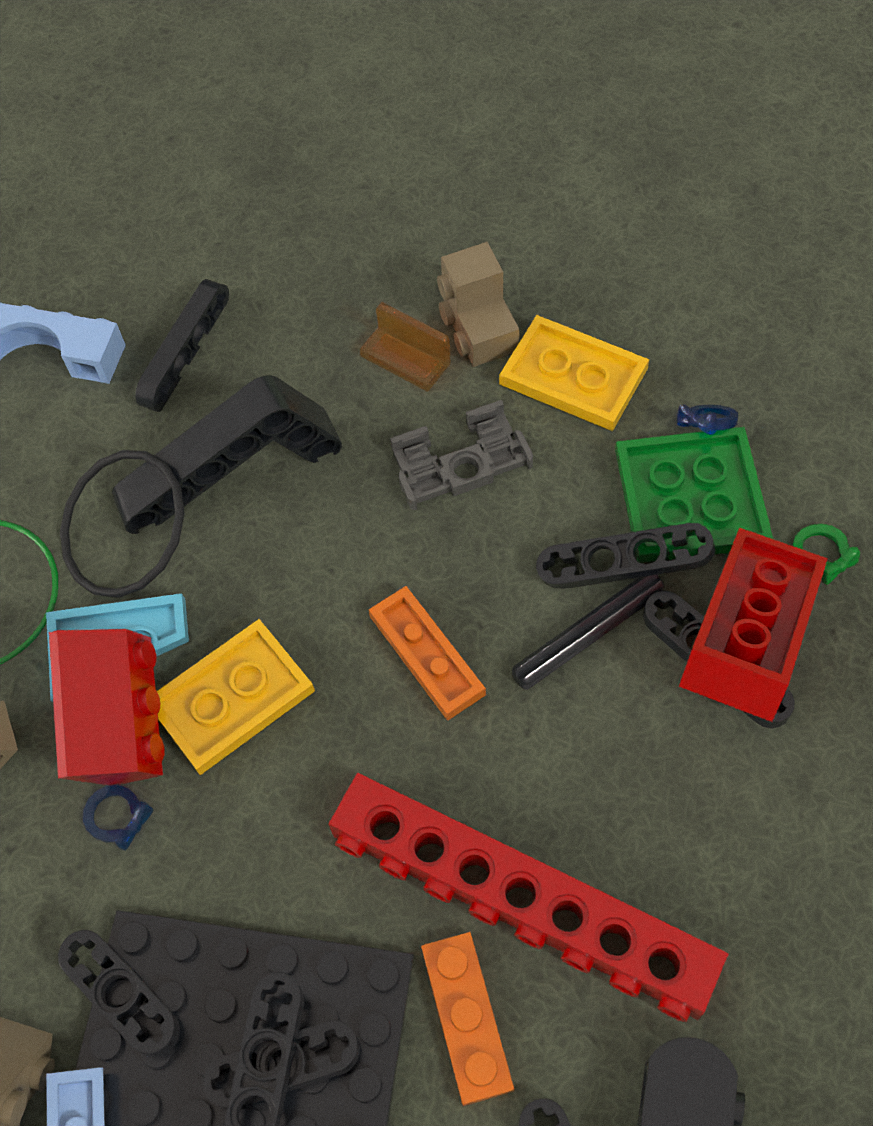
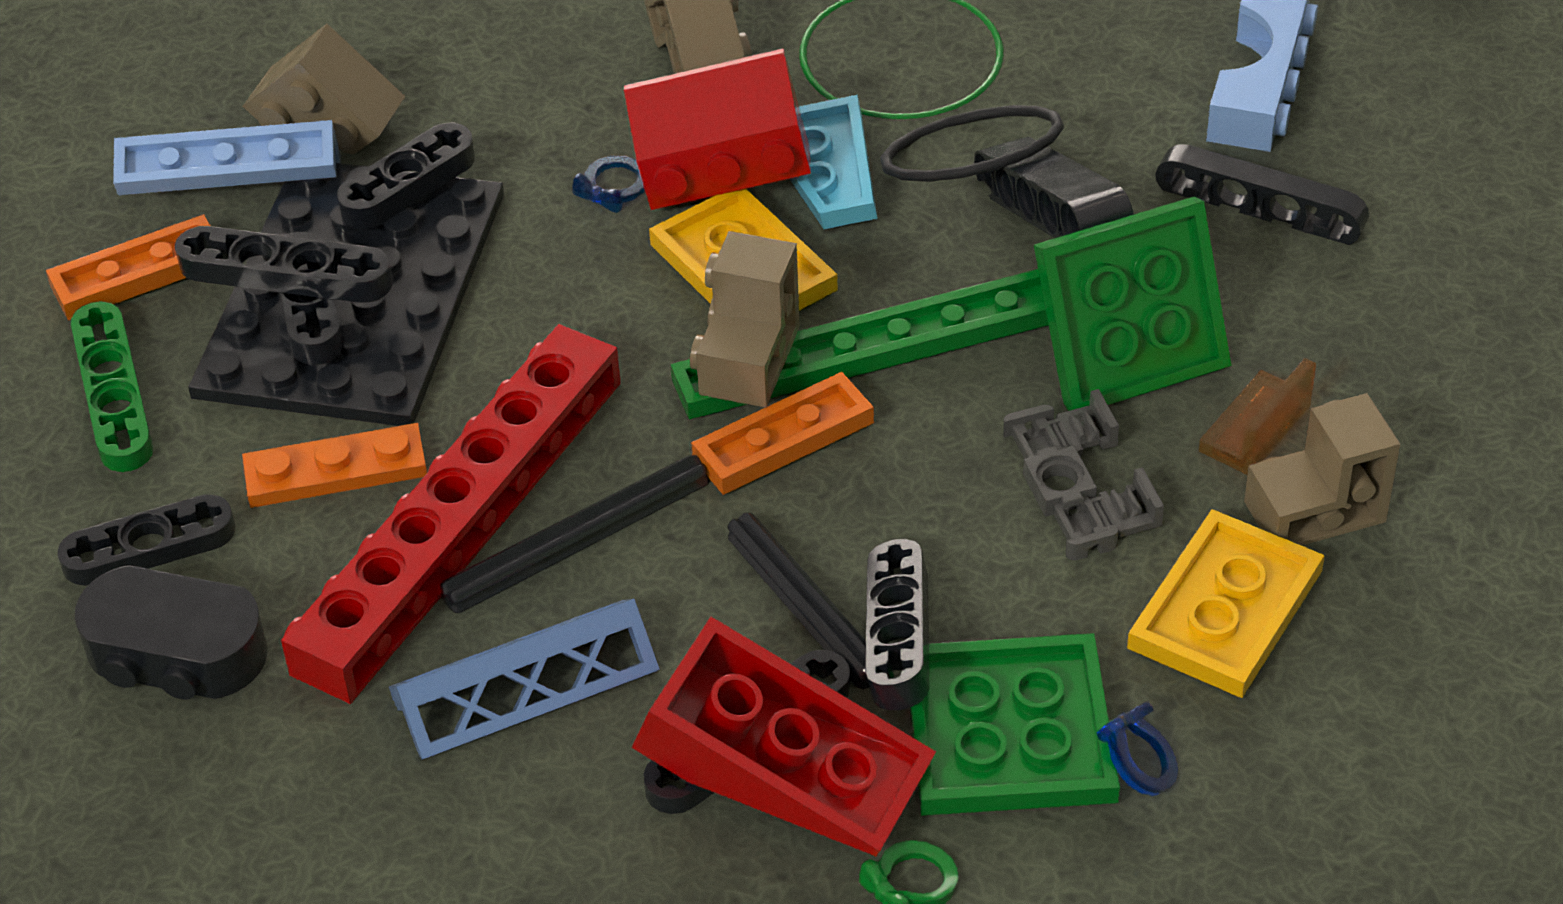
camera: 90 degrees right, 15 degrees down
(328, 594) = (892, 337): none -> green plate
(329, 401) = (1133, 304): none -> green plate
(346, 664) = (748, 319): none -> dark tan brick
(535, 801) = (573, 534): none -> black axle
(679, 826) = (516, 654): none -> medium blue fence

